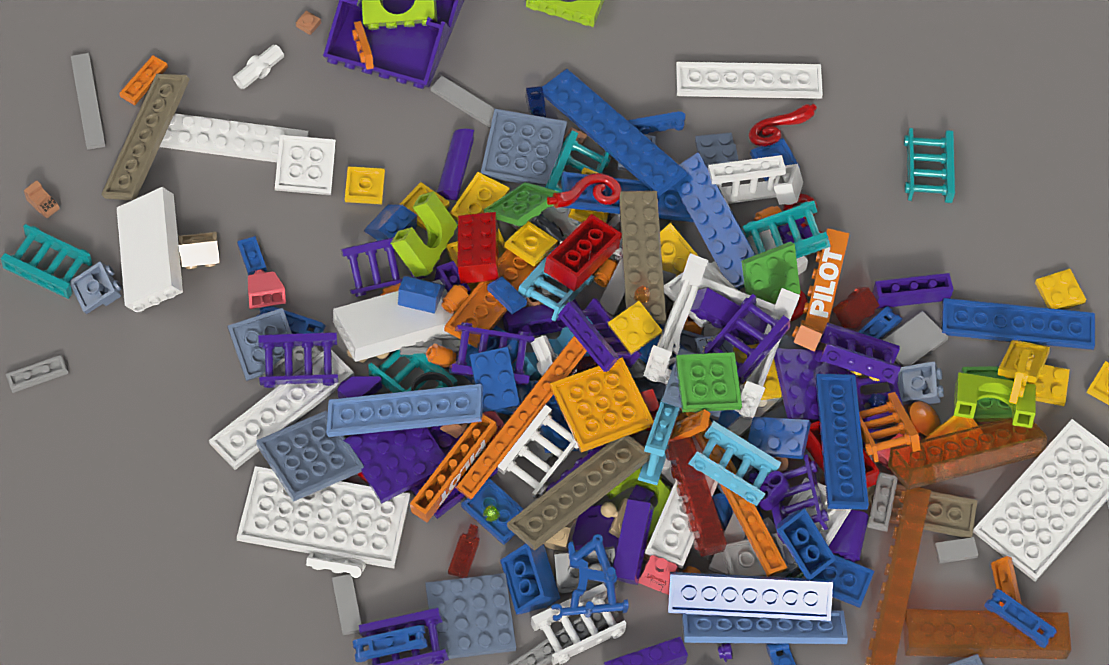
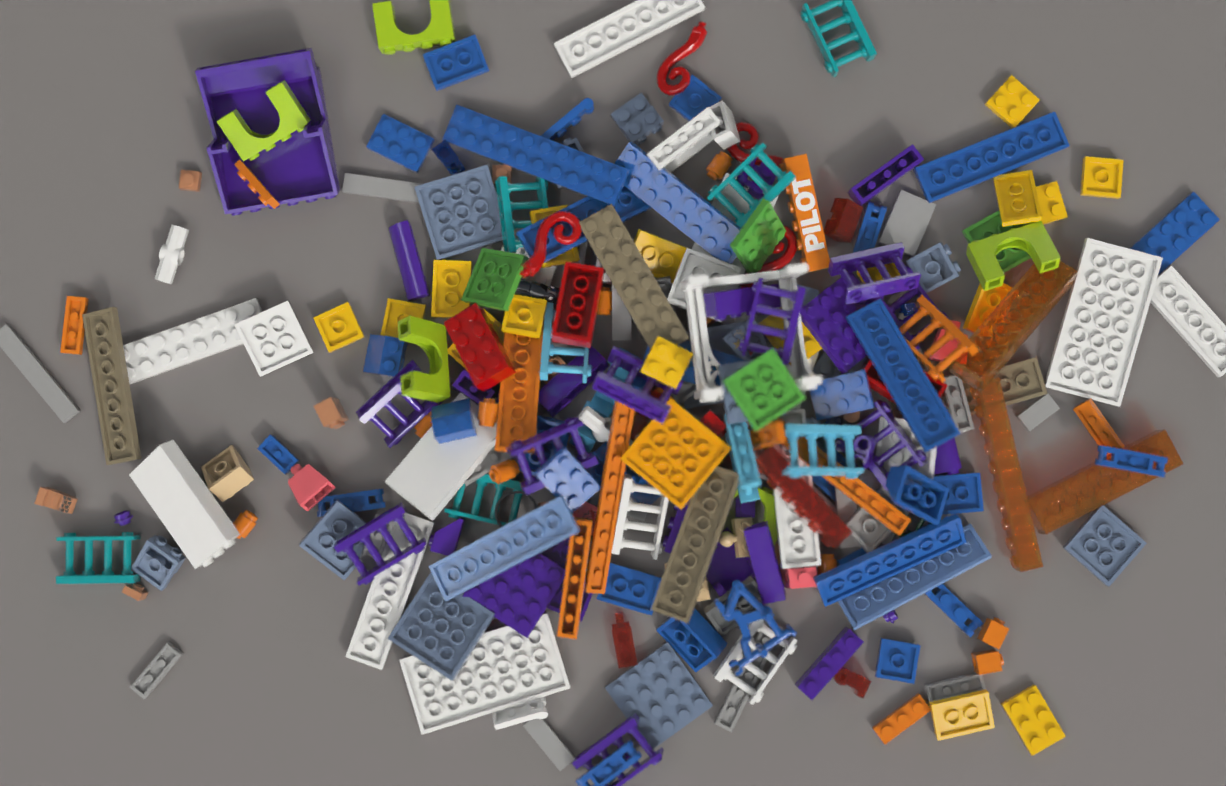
camera: 20 degrees left, 25 degrees up
(61, 300) = (135, 591): none -> nougat plate
(88, 241) = (123, 517): none -> dark purple plate
(190, 294) = (245, 523): none -> orange brick
(318, 241) = (331, 413): none -> nougat brick
(492, 513) = (628, 597): clear neon green hinge -> none
(501, 76) = (400, 143): none -> blue plate
(507, 295) = (532, 384): blue plate -> none
(584, 39) = (456, 62): none -> blue plate
(642, 294) = (657, 326): clear orange hinge -> none
(807, 336) = (817, 278): orange brick -> none
(923, 417) = (954, 301): orange dish -> none
(1021, 376) = (1032, 229): yellow plate -> none

